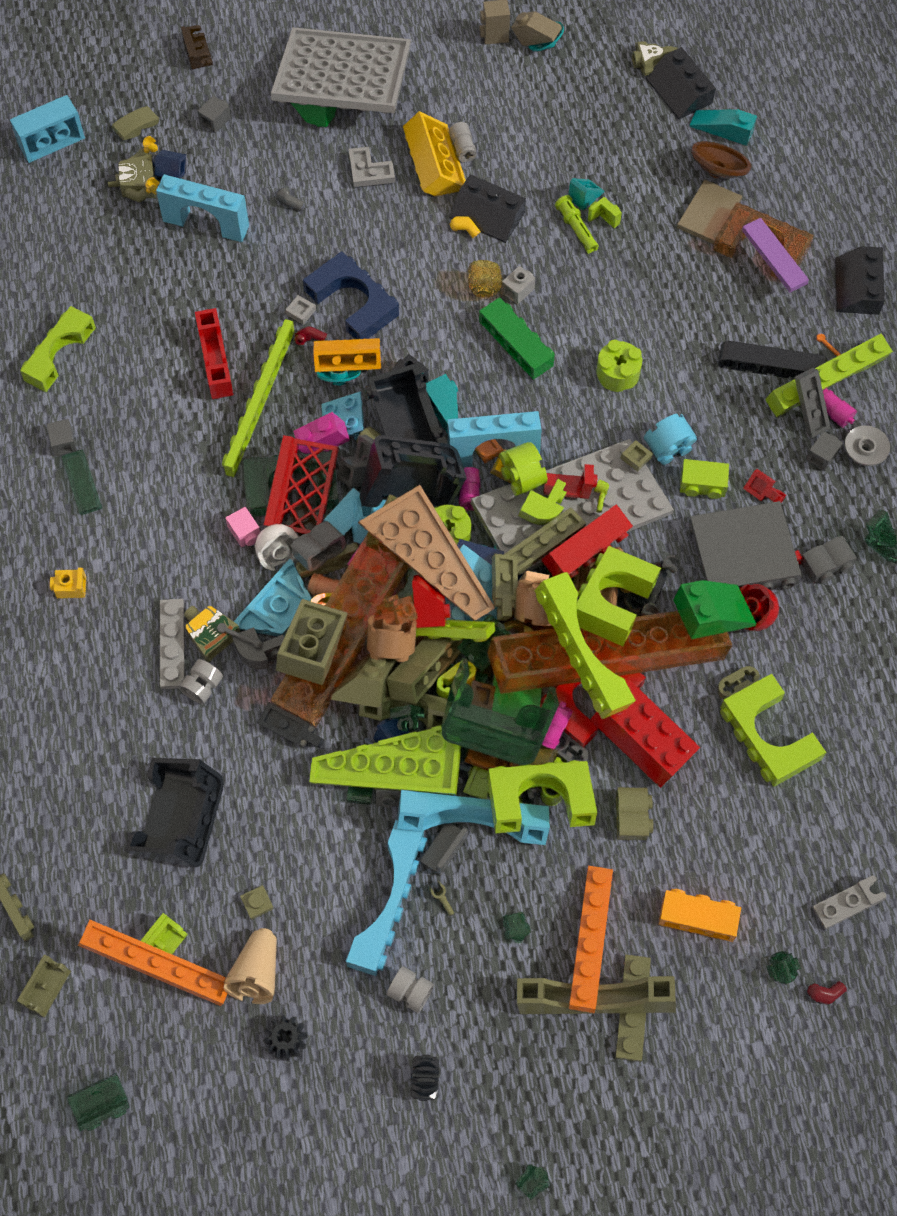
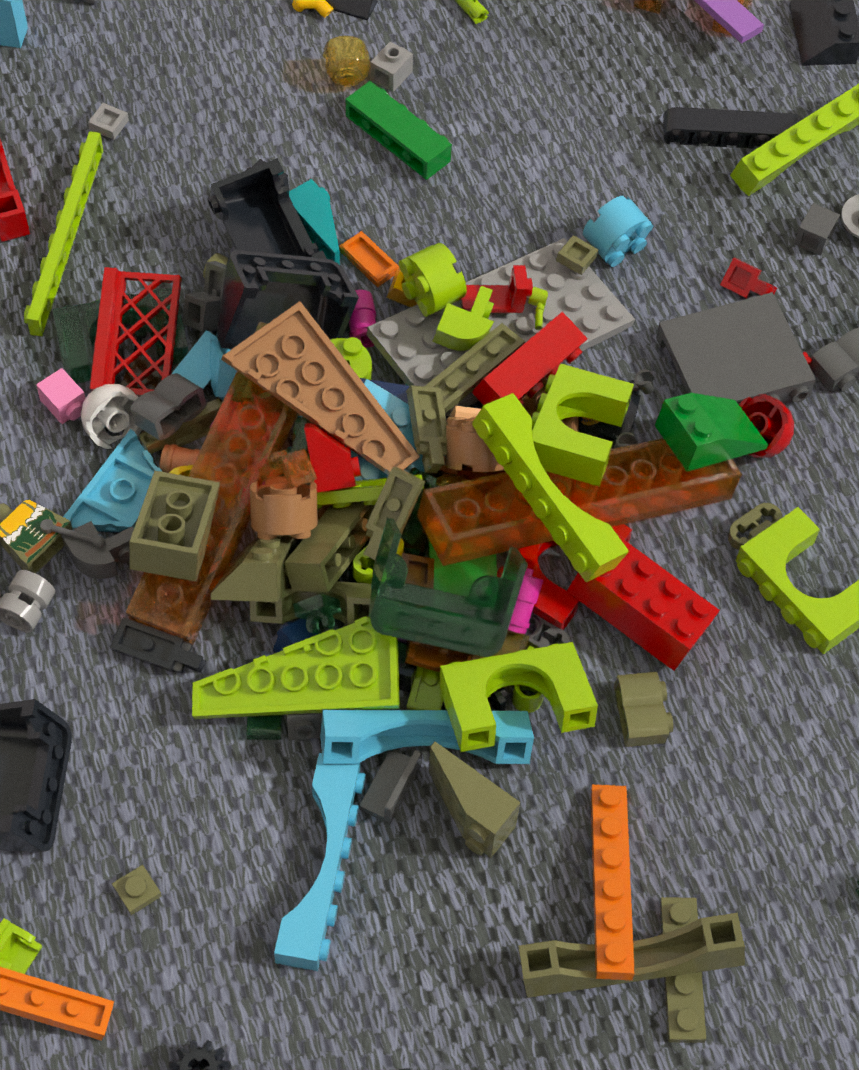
camera: 10 degrees left, 5 degrees down
(254, 969) = (144, 982): tan cone -> none
(307, 334) = (123, 148): dark red arm -> none
(325, 430) = (159, 258): dark pink brick -> none
(338, 377) = (168, 192): teal dish -> none
(344, 273) = (161, 71): dark blue arch -> none
(347, 355) = (177, 168): light orange brick -> none
(349, 410) = (181, 246): medium azure hinge -> none
(410, 989) = (369, 982): light grey wheel -> none
(442, 898) = (397, 852): olive hand -> none
(469, 646) = (394, 502): none -> olive hinge
(470, 432) = (356, 241): medium azure arch -> none
(504, 875) = (476, 804): none -> olive slope
(516, 927) = (505, 879): clear green arm -> none
(619, 366) = (537, 150): lime brick -> none
(700, 915) = (754, 832): light orange brick -> none
(704, 478) = (668, 276): lime brick -> none
(812, 402) = (793, 168): dark grey plate -> none
(821, 338) = (789, 97): orange hinge -> none
(837, 409) = (825, 178): dark pink piece -> none

